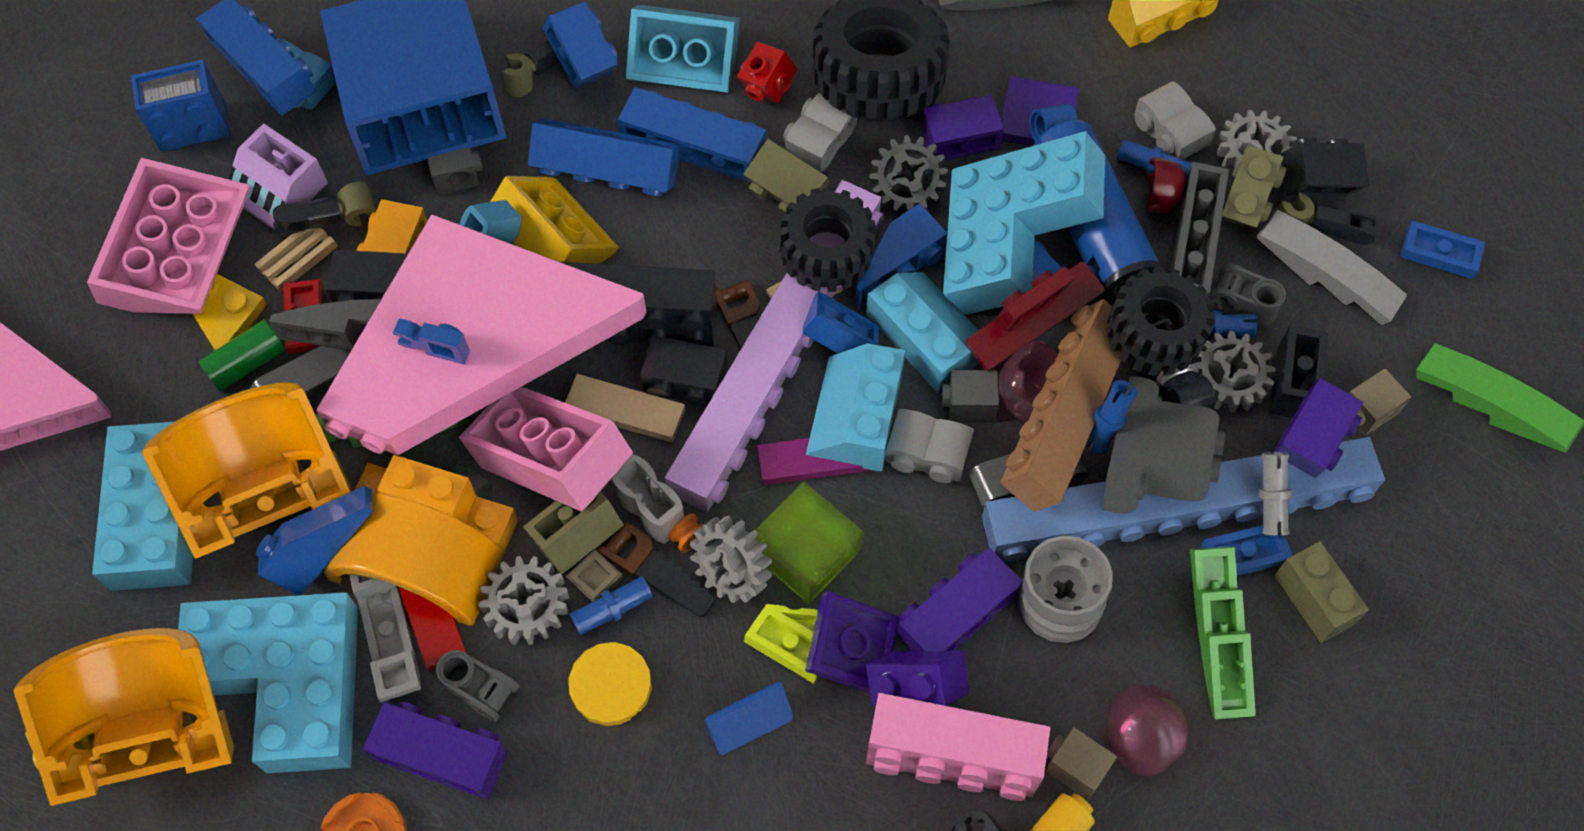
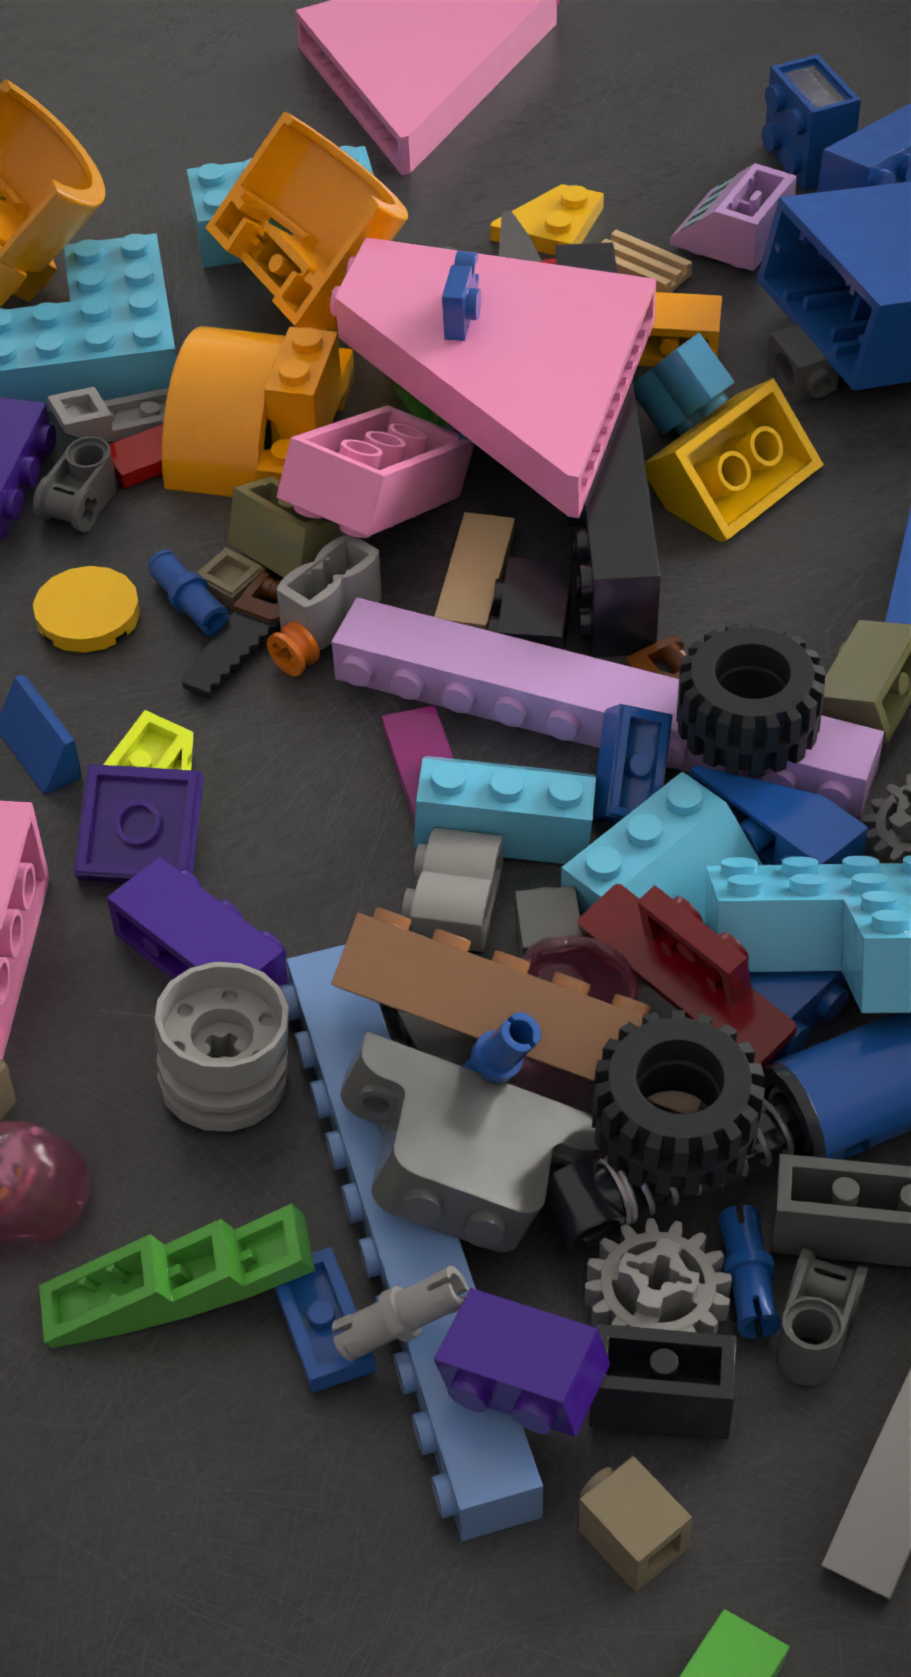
camera: 85 degrees right, 15 degrees down
(167, 240) = (624, 143): bright pink slope -> none
(242, 355) = (470, 229): green brick -> none
(297, 217) = (699, 262): black piece -> none
(311, 540) = (234, 304): blue slope -> none
(539, 600) = (184, 511): light grey gear -> none
(603, 155) = (858, 490): blue brick -> none
(731, 559) = (243, 673): light grey gear -> none
(808, 542) = (285, 762): clear neon green piece -> none
(919, 676) = (71, 873): dark purple brick -> none
(1321, 592) = (248, 1420): olive brick -> none

